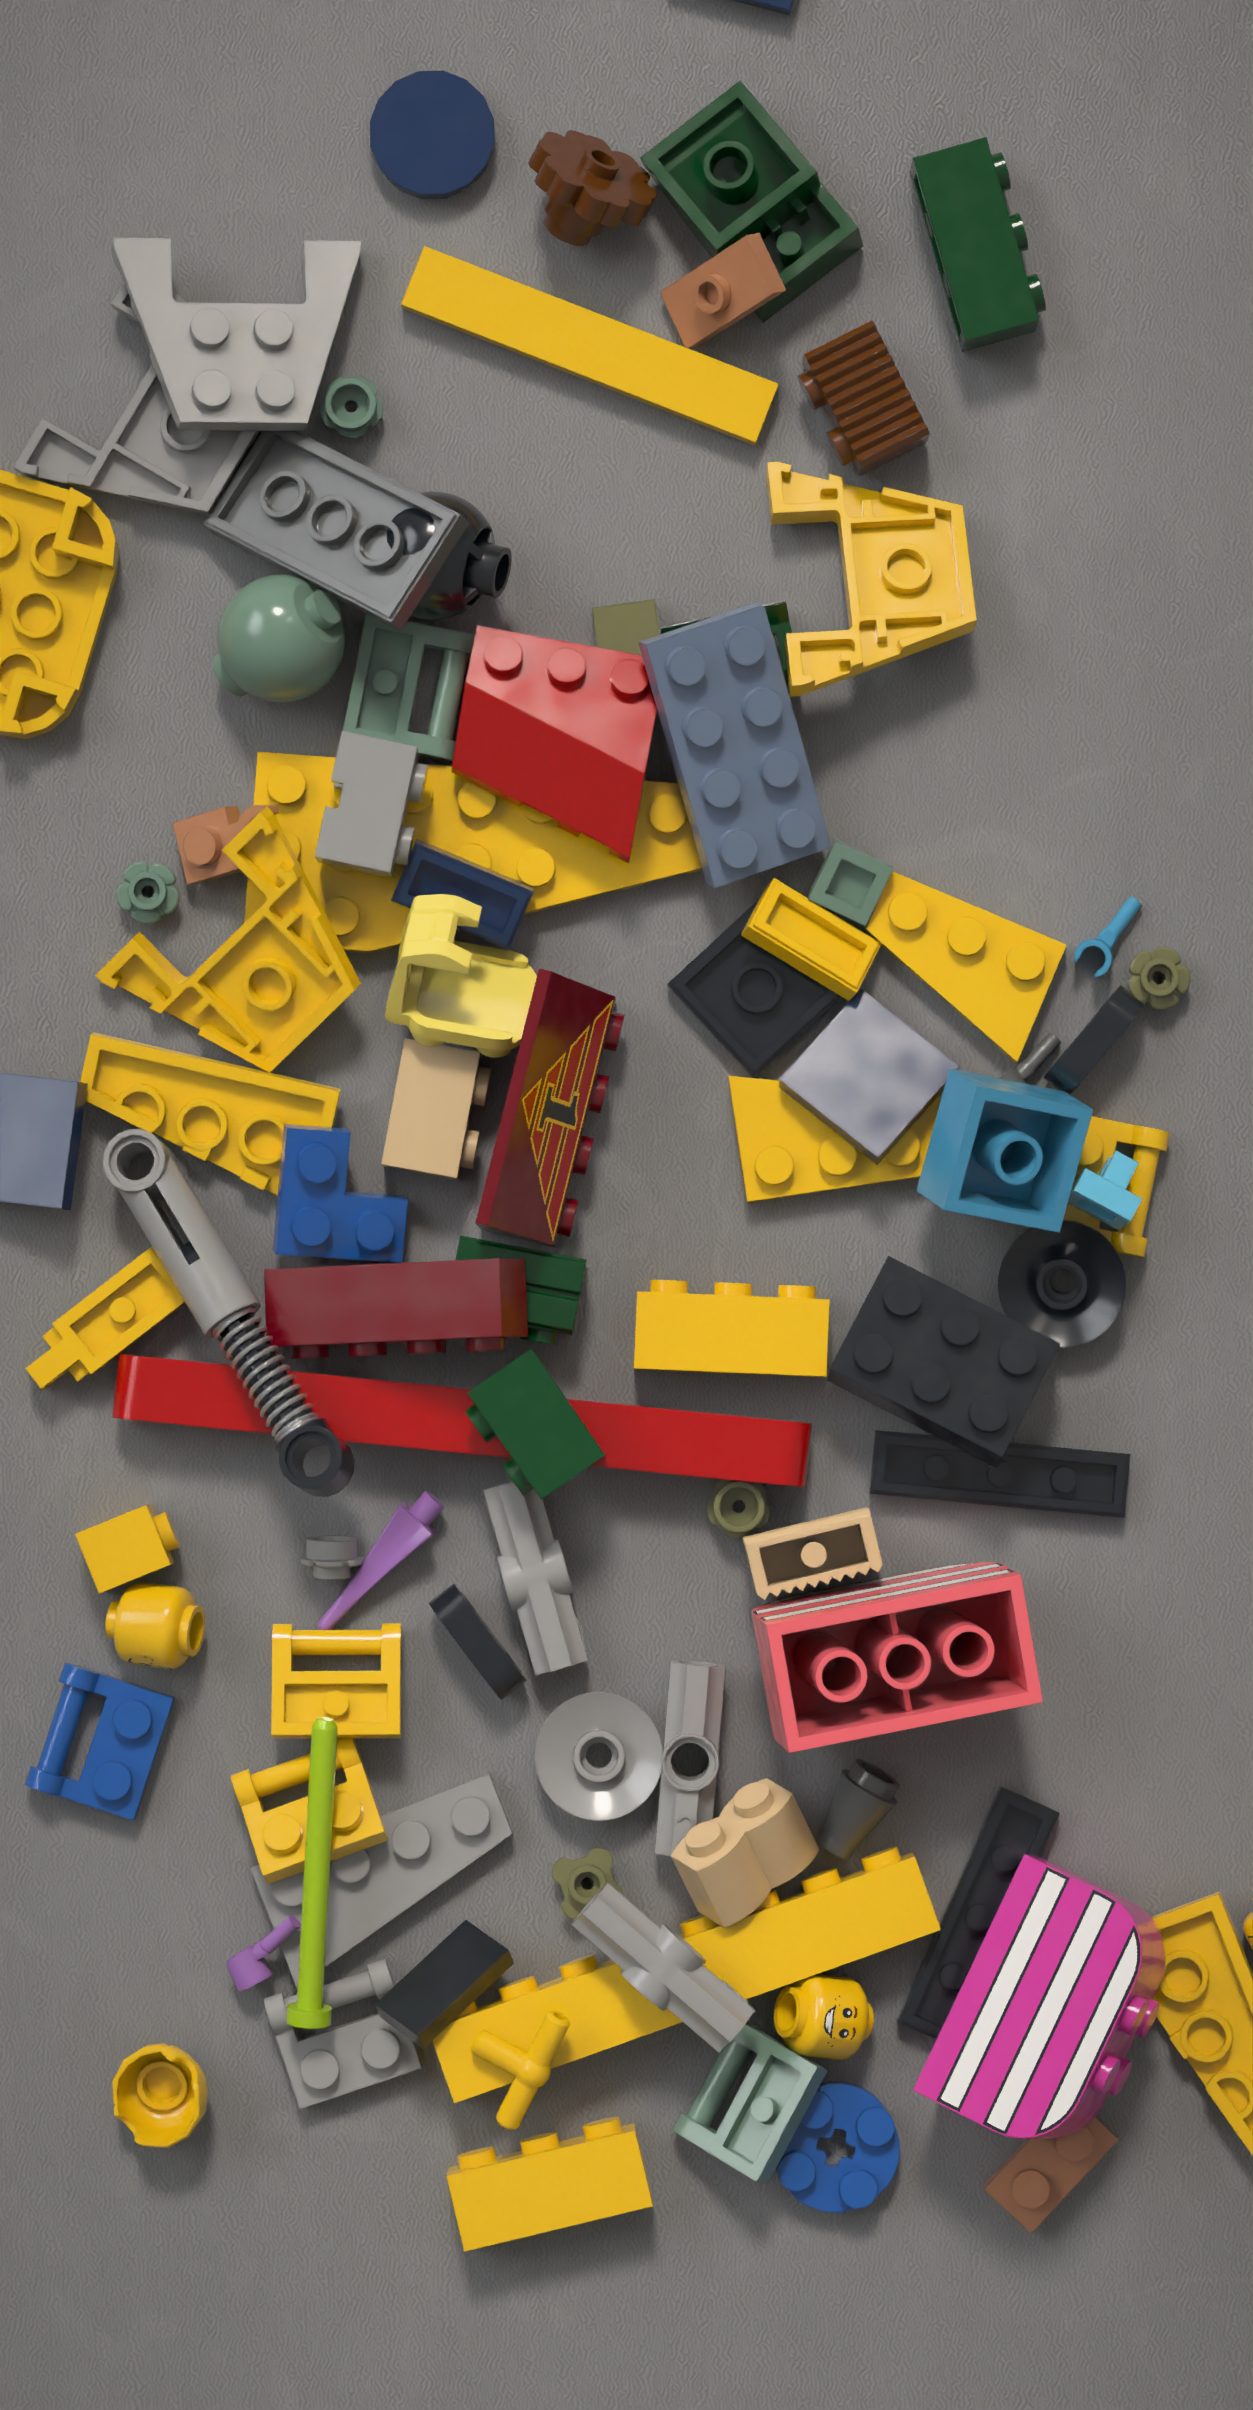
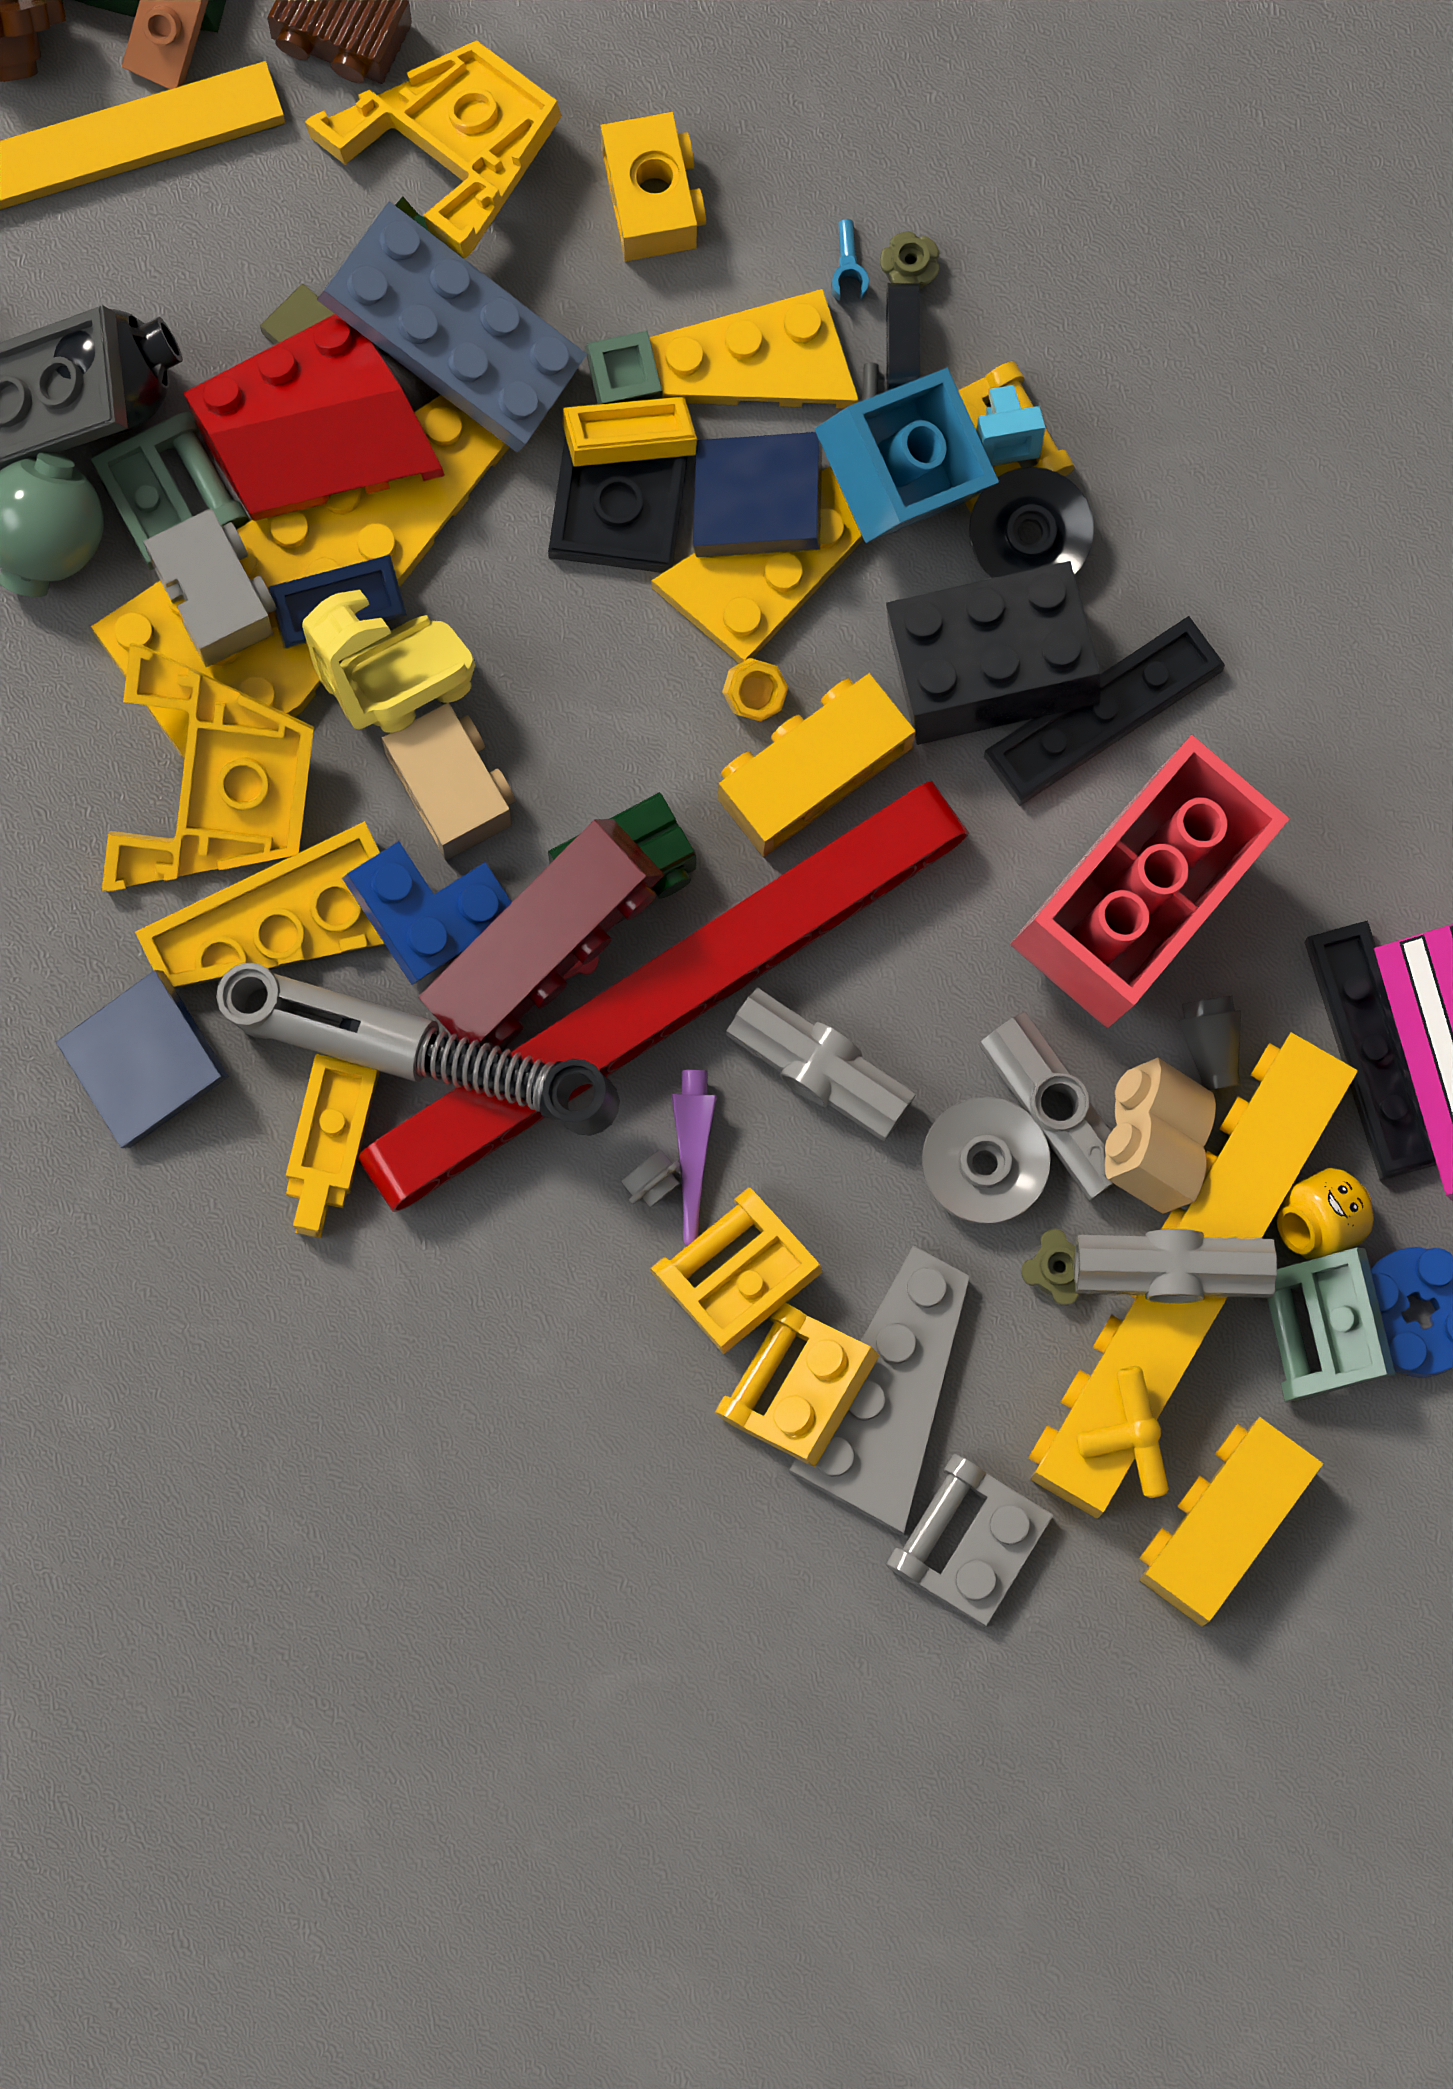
camera: 45 degrees left, 10 degrees down
(120, 1749) = (610, 1462): blue plate -> none
(128, 1547) = (487, 1299): yellow brick -> none
(148, 909) = (101, 810): sand green plate -> none
(156, 1625) = (559, 1341): yellow head -> none
(160, 2095) = (868, 1703): yellow hair -> none
(204, 837) = (109, 723): nougat plate -> none
(250, 1965) = (853, 1547): medium lavender hand -> none
(309, 2009) = (850, 1425): lime bar -> none
(444, 1984) = (1016, 1429): black tile -> none
(477, 1641) = (819, 1150): black beam -> none
(534, 1425) = (725, 938): dark green brick -> none
(547, 1110) = (534, 702): dark red slope -> none
(733, 1523) = (938, 876): olive plate -> none
(735, 1232) = (755, 689): none -> yellow tile
(812, 1552) = (1017, 872): tan brick -> none
(1002, 708) = (651, 221): none -> yellow brick

